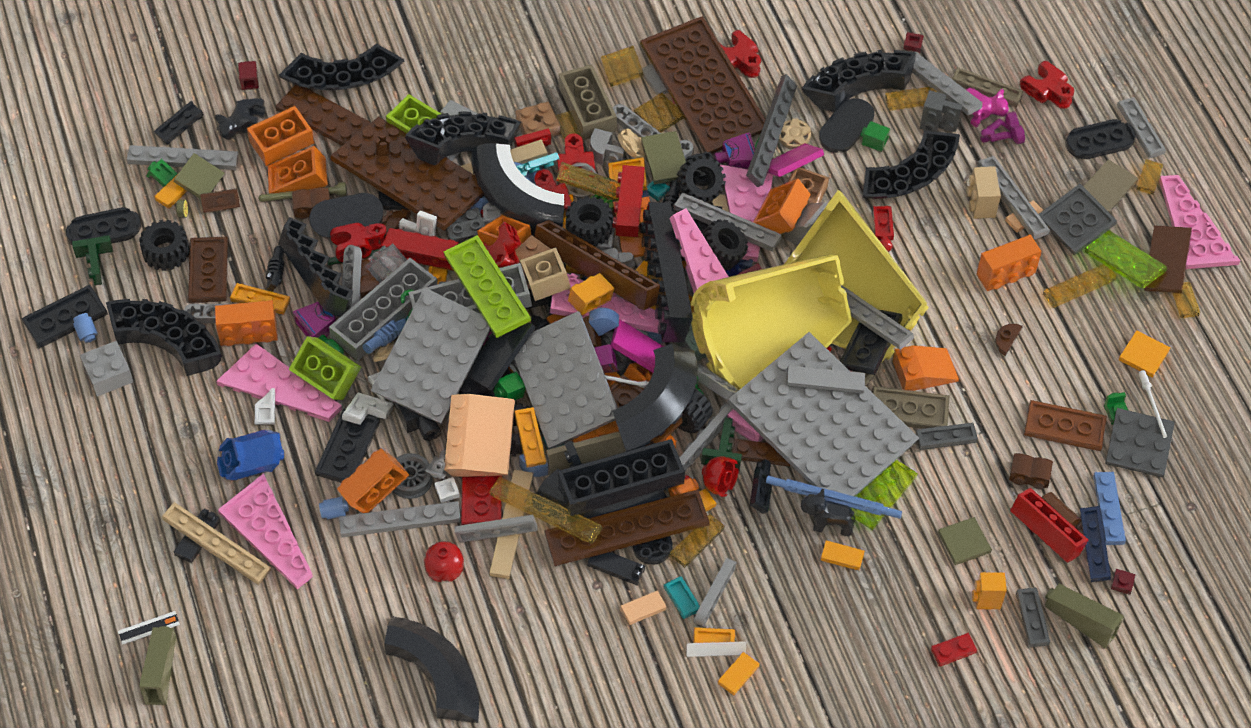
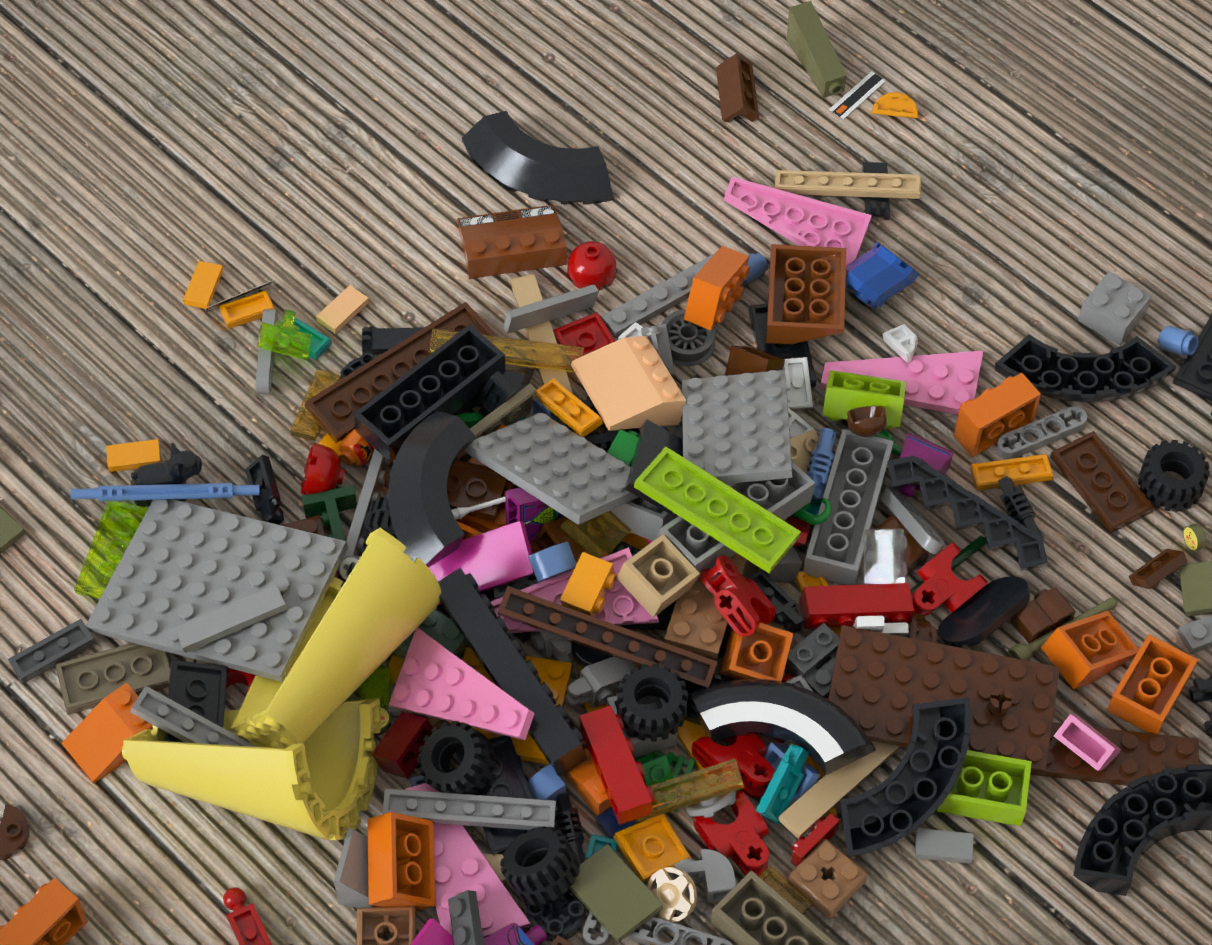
camera: 155 degrees right, 0 degrees up
(131, 597) = (895, 105): none -> light orange plate
(240, 666) = (737, 89): none -> reddish brown panel
(313, 454) = (805, 293): none -> dark orange slope
(340, 335) = (867, 420): none -> reddish brown hair
(343, 118) = (1087, 742): none -> bright pink brick
(380, 427) = (751, 360): none -> reddish brown brick
(489, 608) = (512, 241): none -> dark orange slope
(699, 585) = (285, 337): none -> clear neon green hinge

